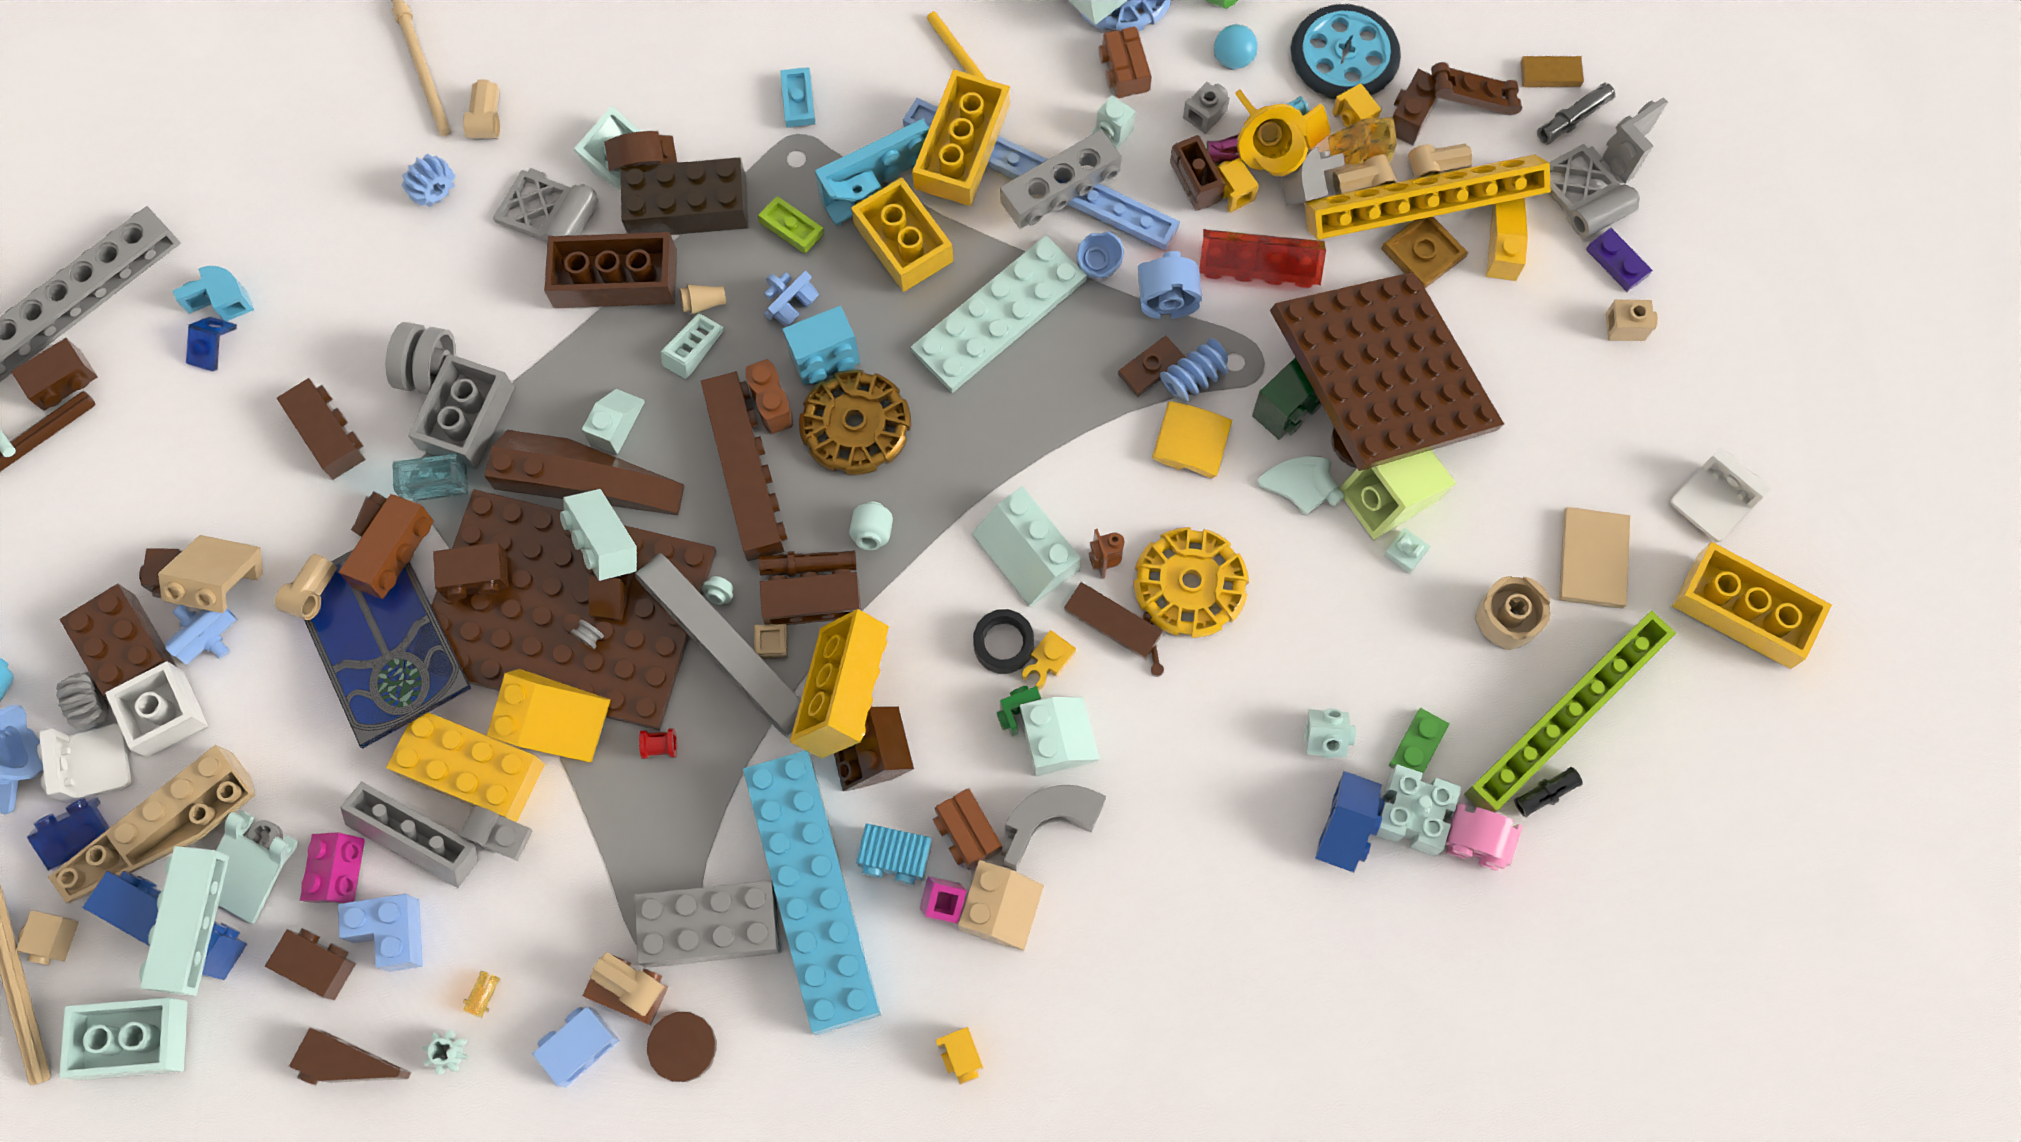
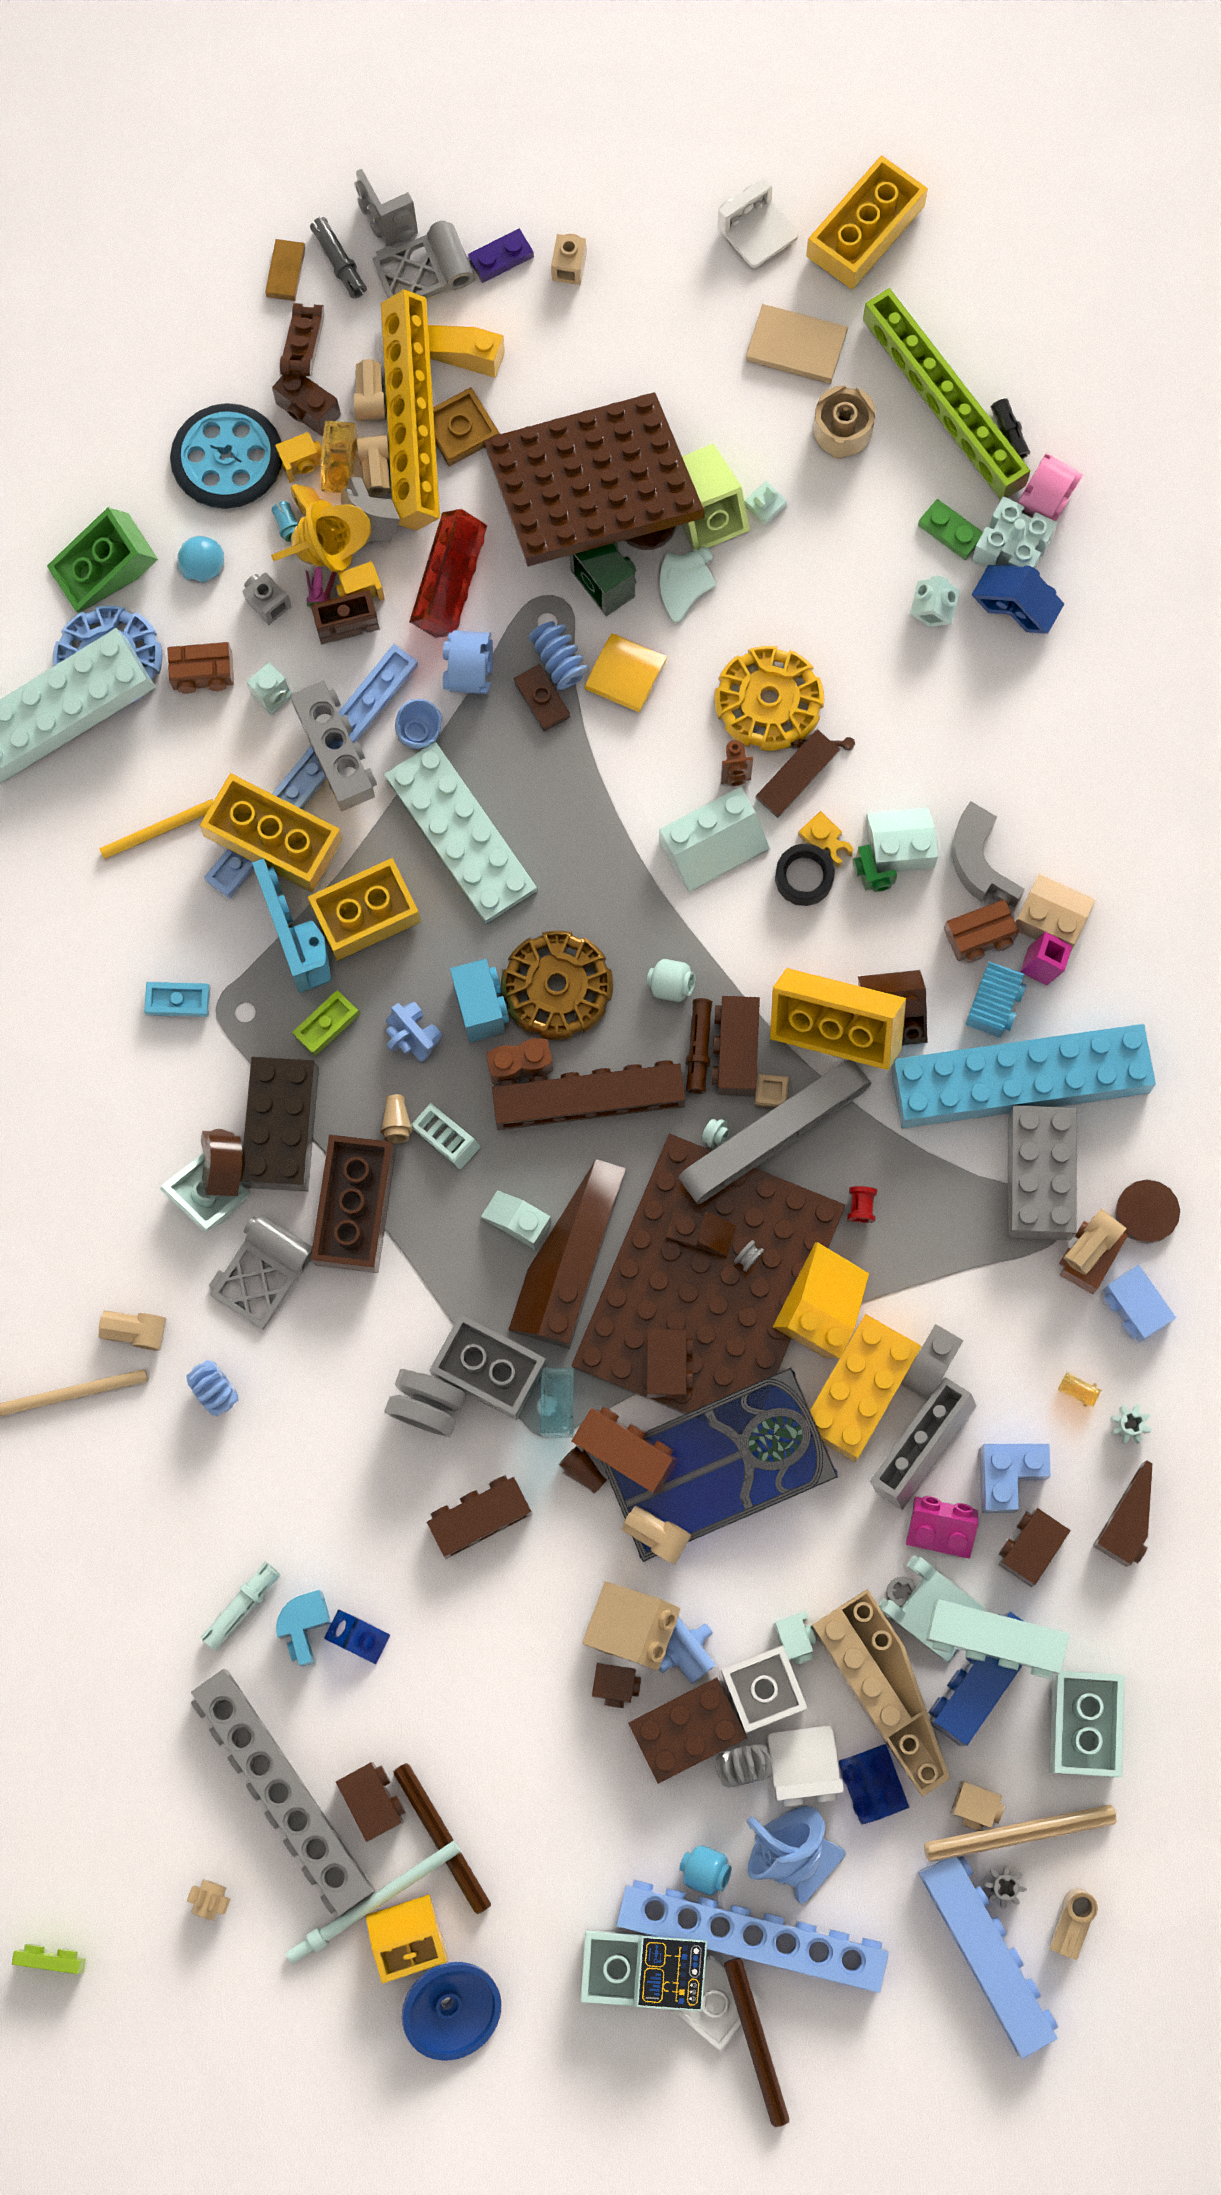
camera: 80 degrees left, 5 degrees up
(212, 730) = (796, 1637): none -> light aqua brick
(243, 246) = (243, 1602): none -> light aqua pin
(599, 534) = (653, 1230): light aqua brick -> none
(960, 1055) = (1184, 963): yellow brick -> none

